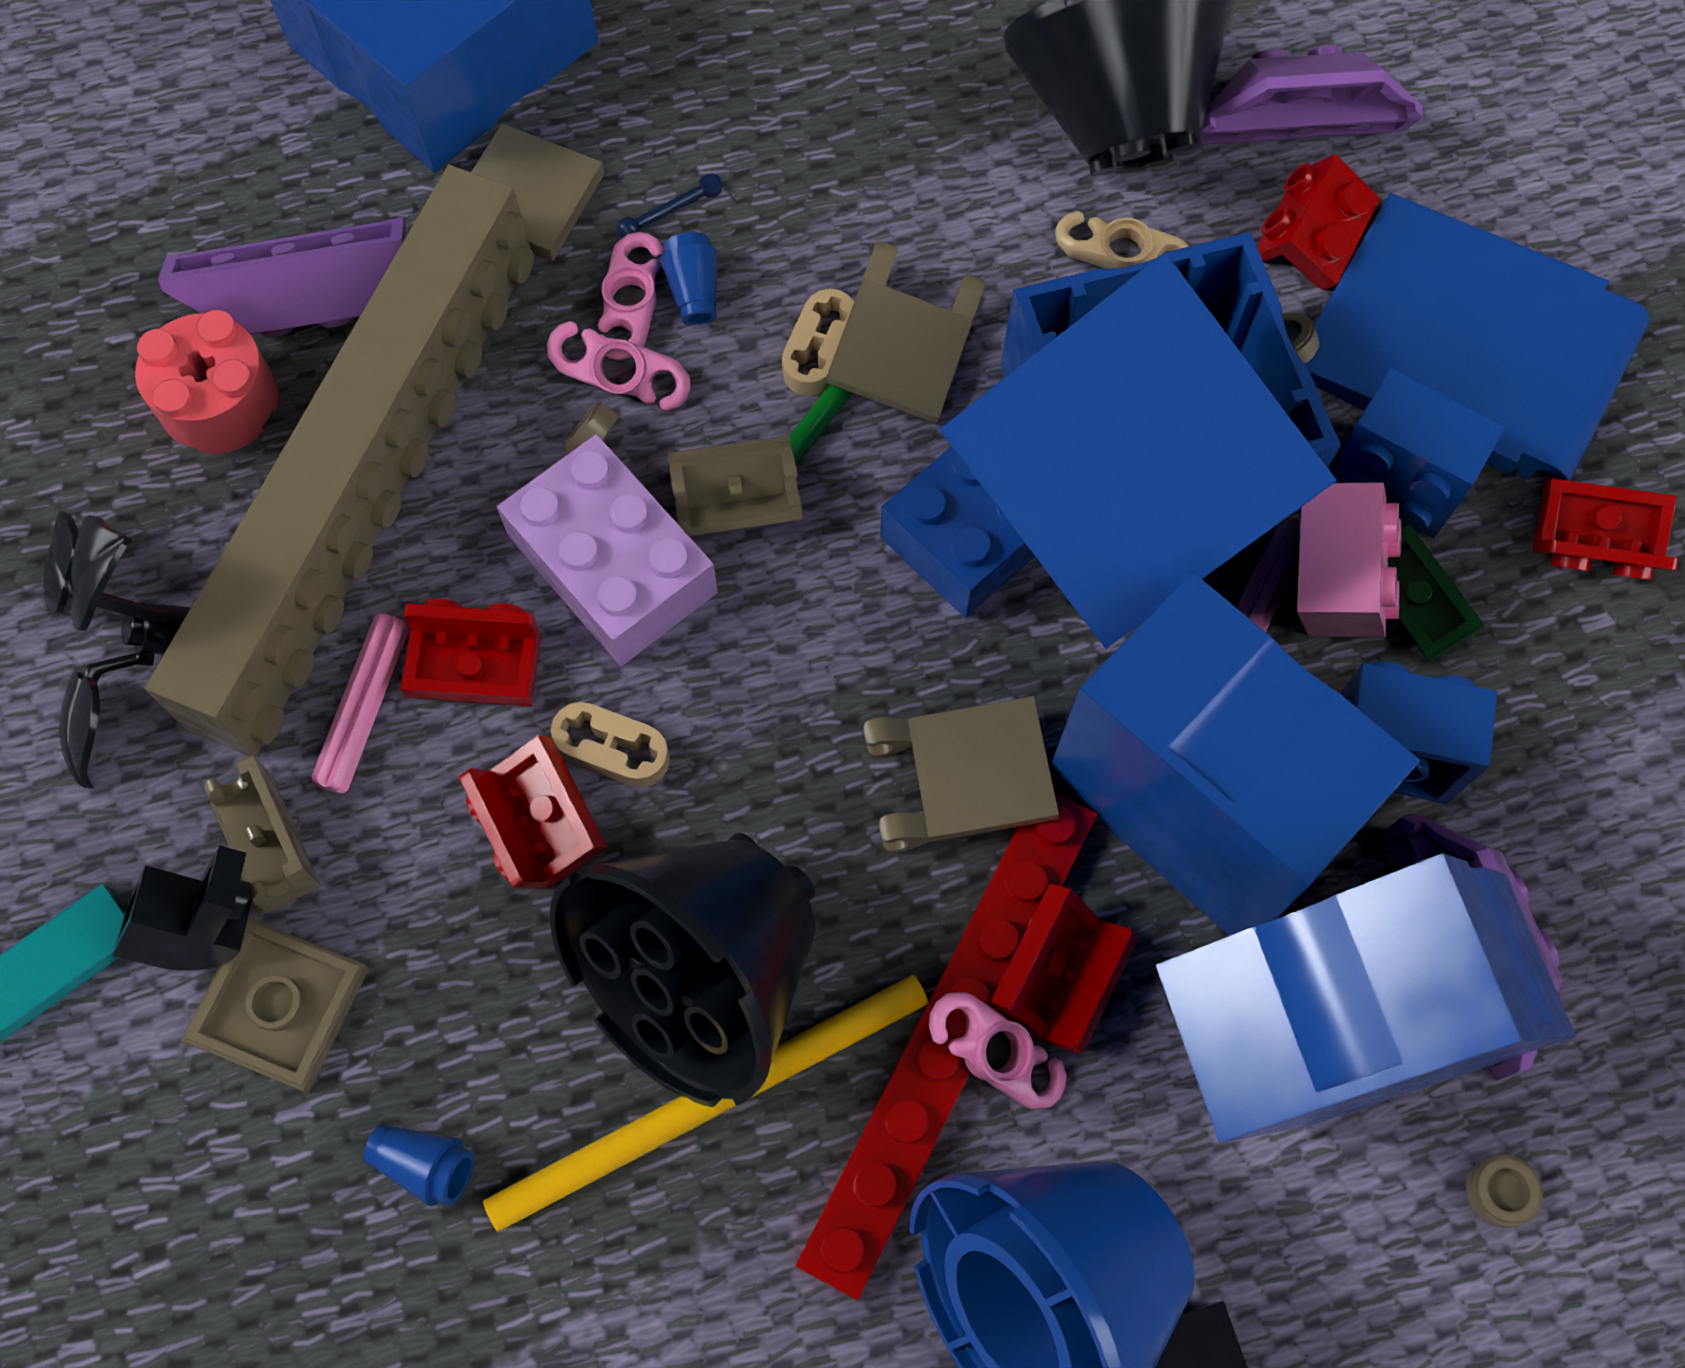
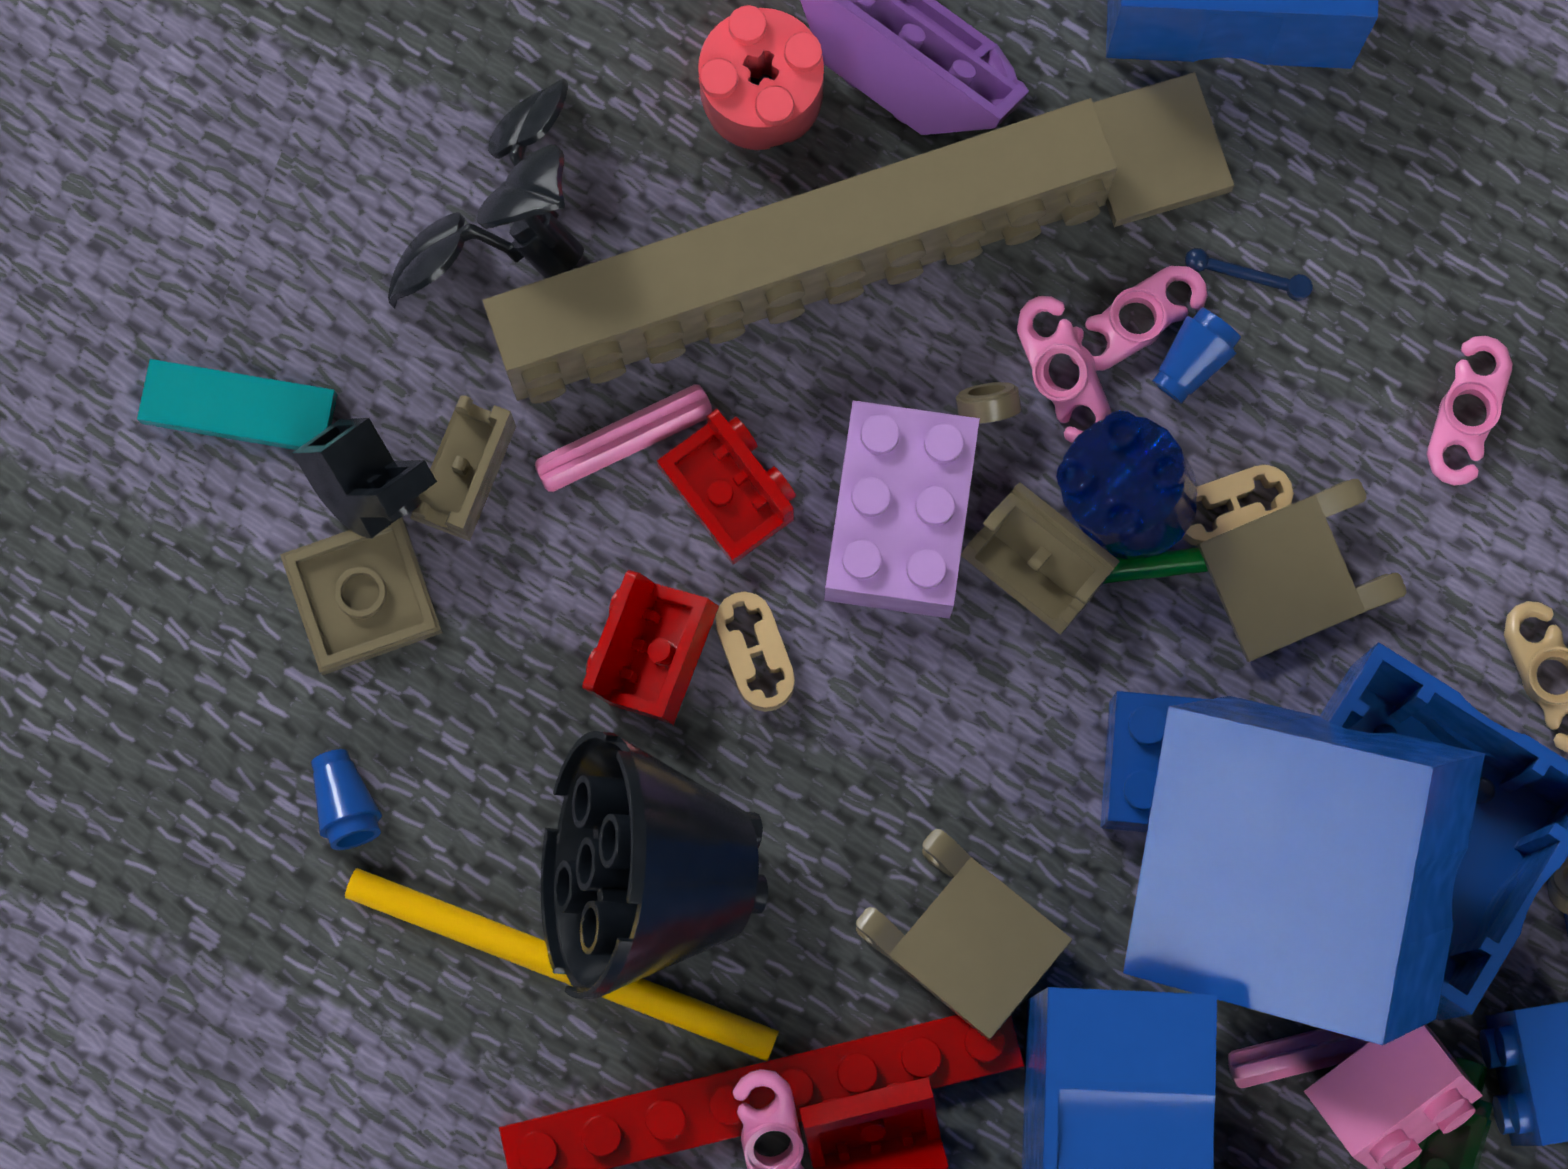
camera: 50 degrees right, 10 degrees up
(740, 380) = (1129, 486): none -> clear blue brick
(895, 173) = (1489, 390): none -> bright pink piece

